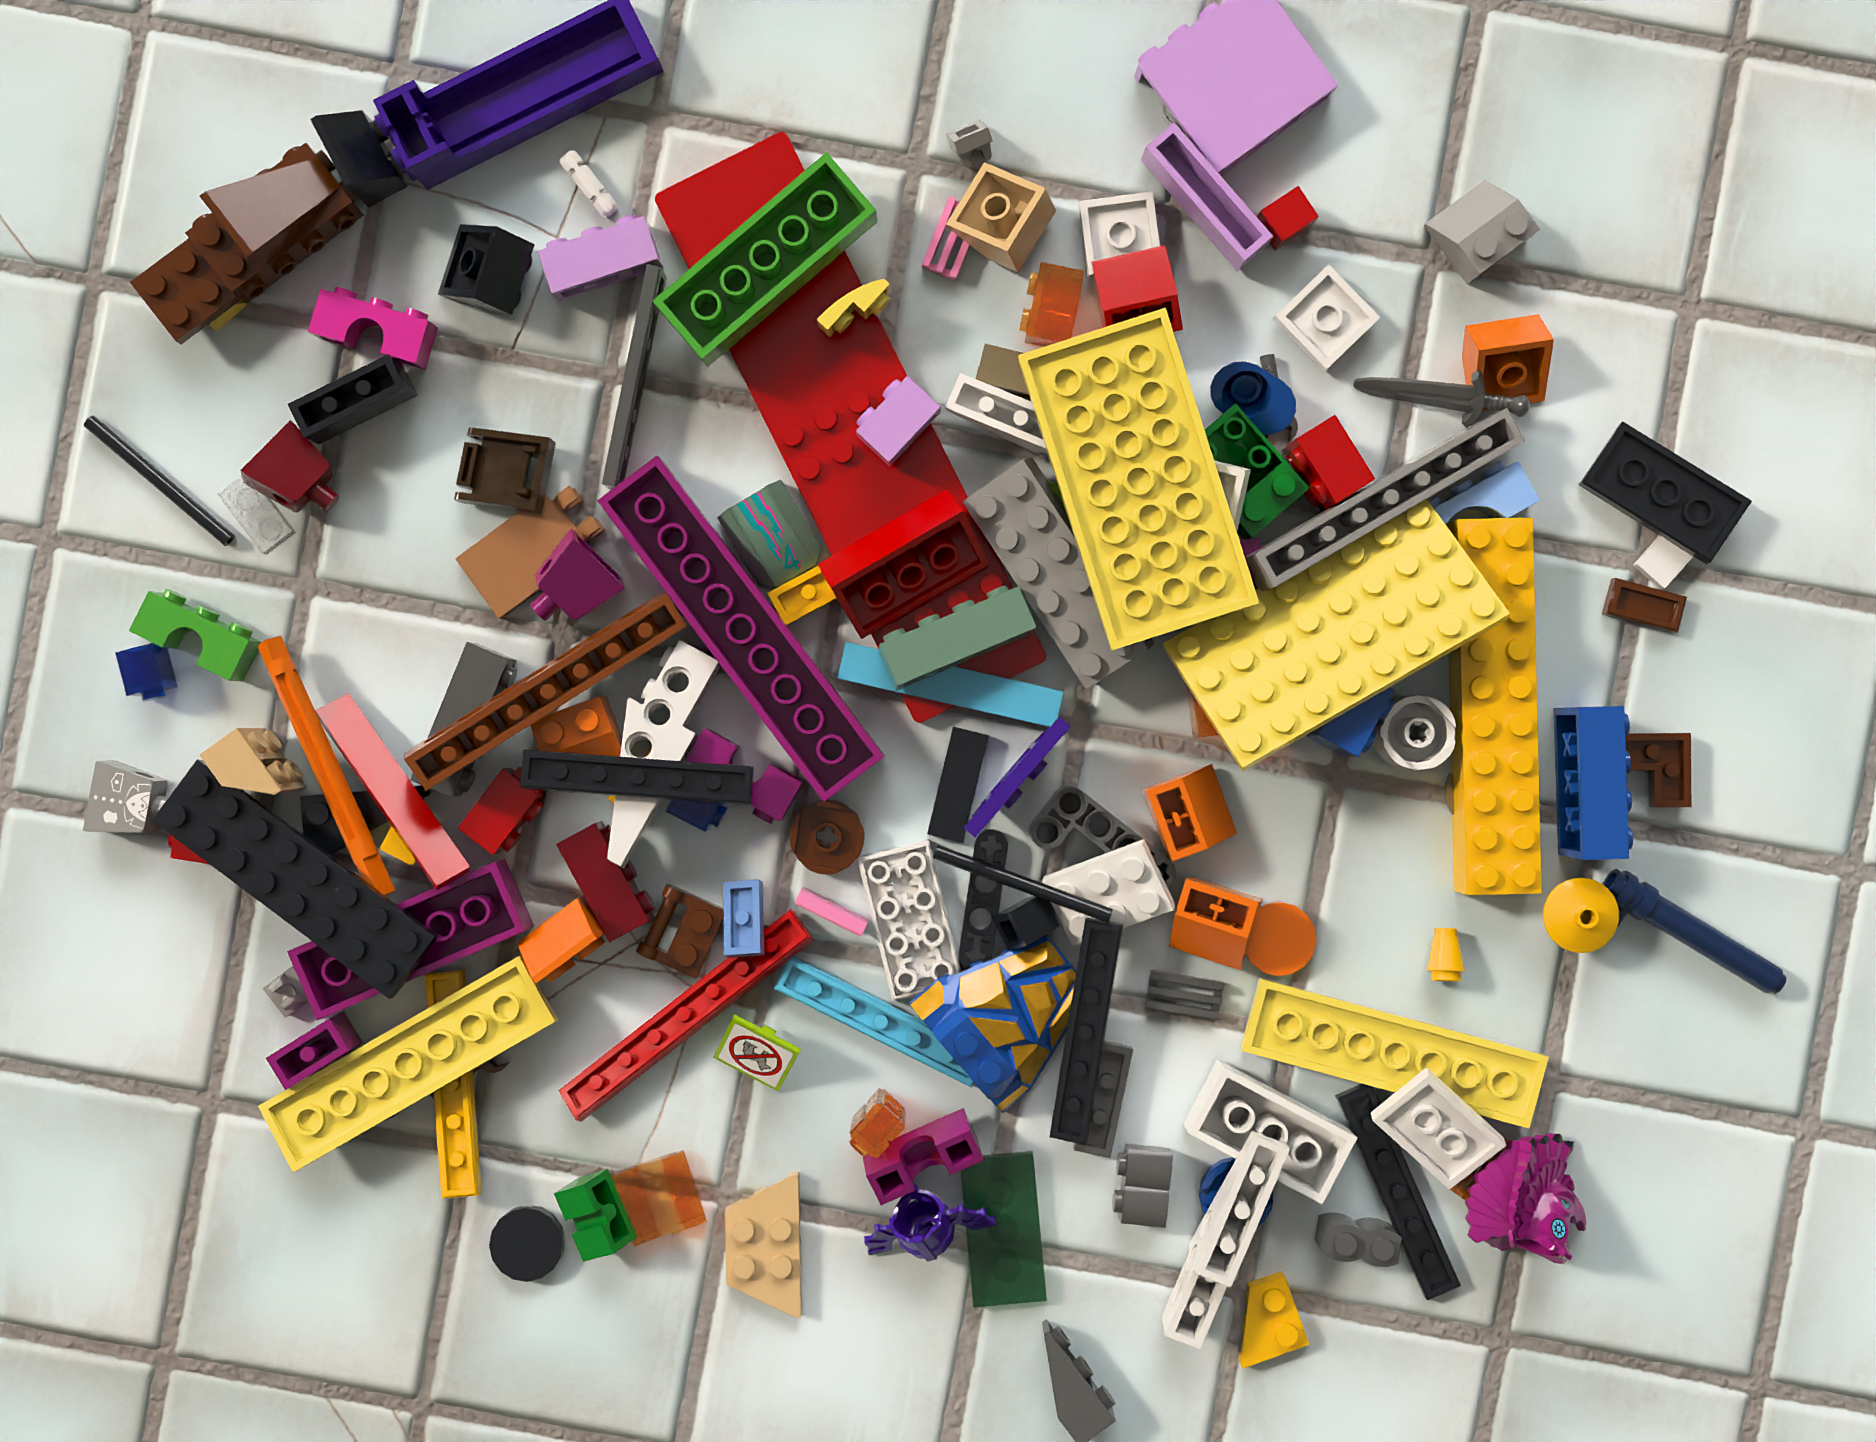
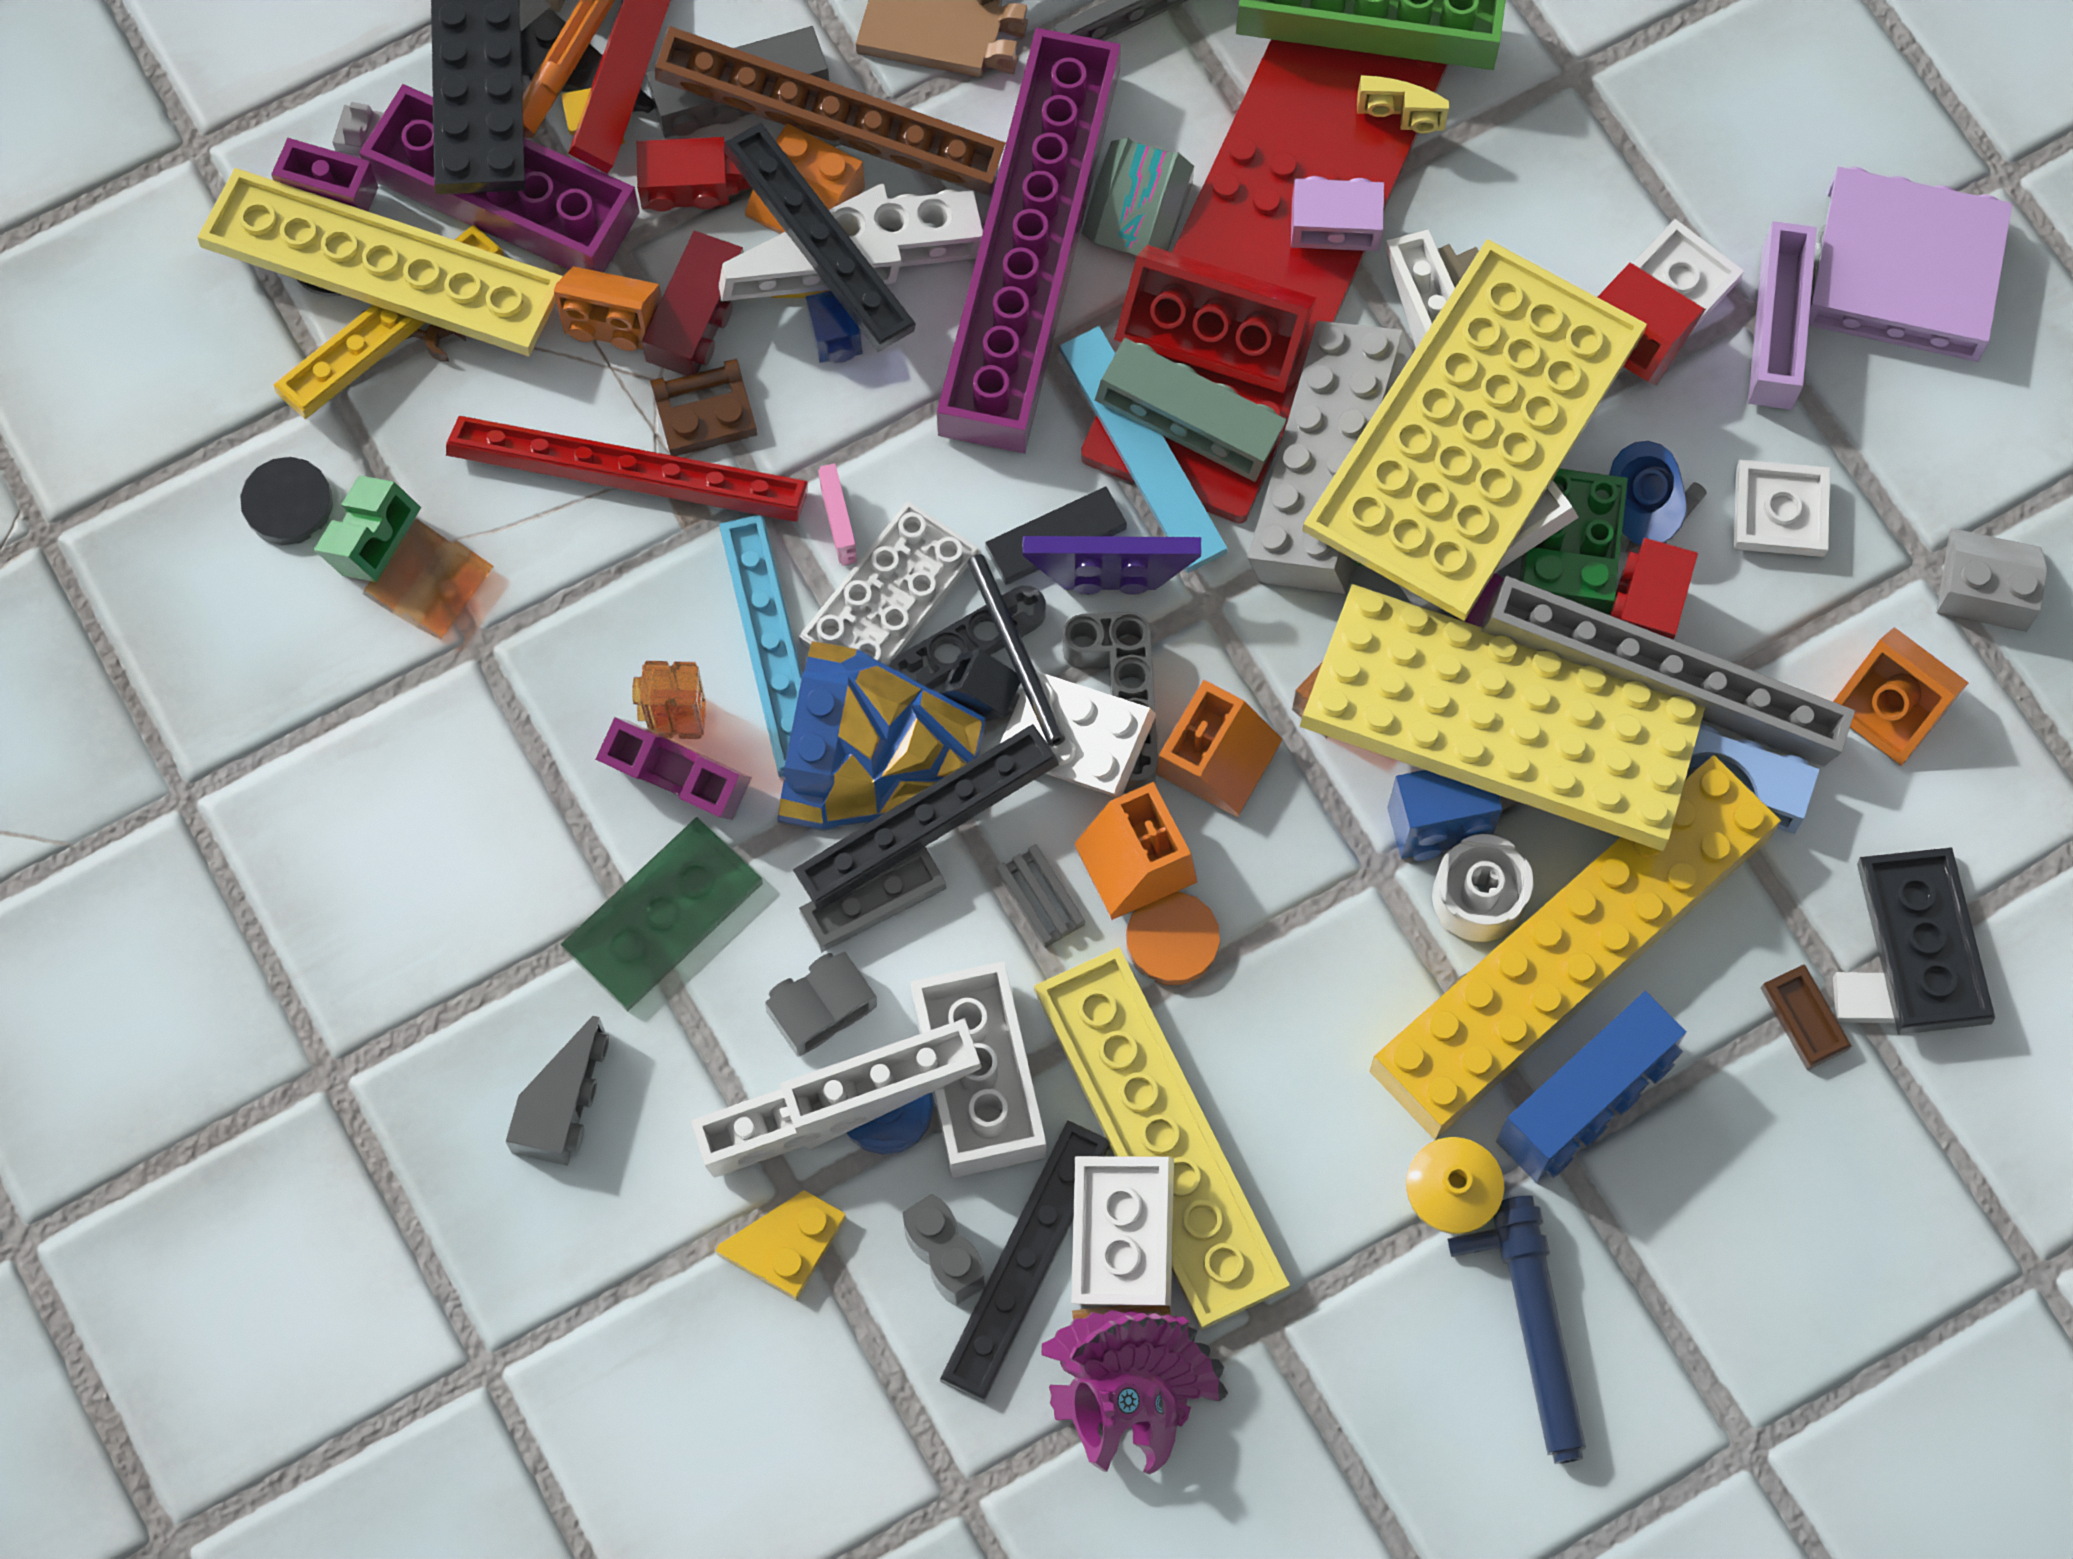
camera: 50 degrees right, 20 degrees down
(574, 579) = (947, 70): magenta torso -> none
(743, 918) = (763, 443): medium blue plate -> none
(757, 1052) = (646, 548): piece -> none
(766, 1245) = (463, 710): tan wing -> none
(770, 794) = (902, 377): magenta arch -> none
(802, 596) = (1102, 267): yellow plate -> none
(811, 850) = (910, 483): reddish brown plate -> none
(924, 1225) = (604, 829): dark purple helmet -> none
(940, 268) = (1536, 143): bright pink tile -> none
(970, 138) = (1638, 92): light grey tile -> none
(1002, 216) = (1599, 167): tan slope -> none
(1053, 306) = (1576, 257): clear orange brick -> none
(1288, 217) = (1832, 401): red brick -> none
(1445, 395) = (1815, 662): dark grey sword -> none
(1445, 956) = (1297, 1107): yellow cone -> none
(1668, 763) = (1681, 1151): reddish brown plate -> none

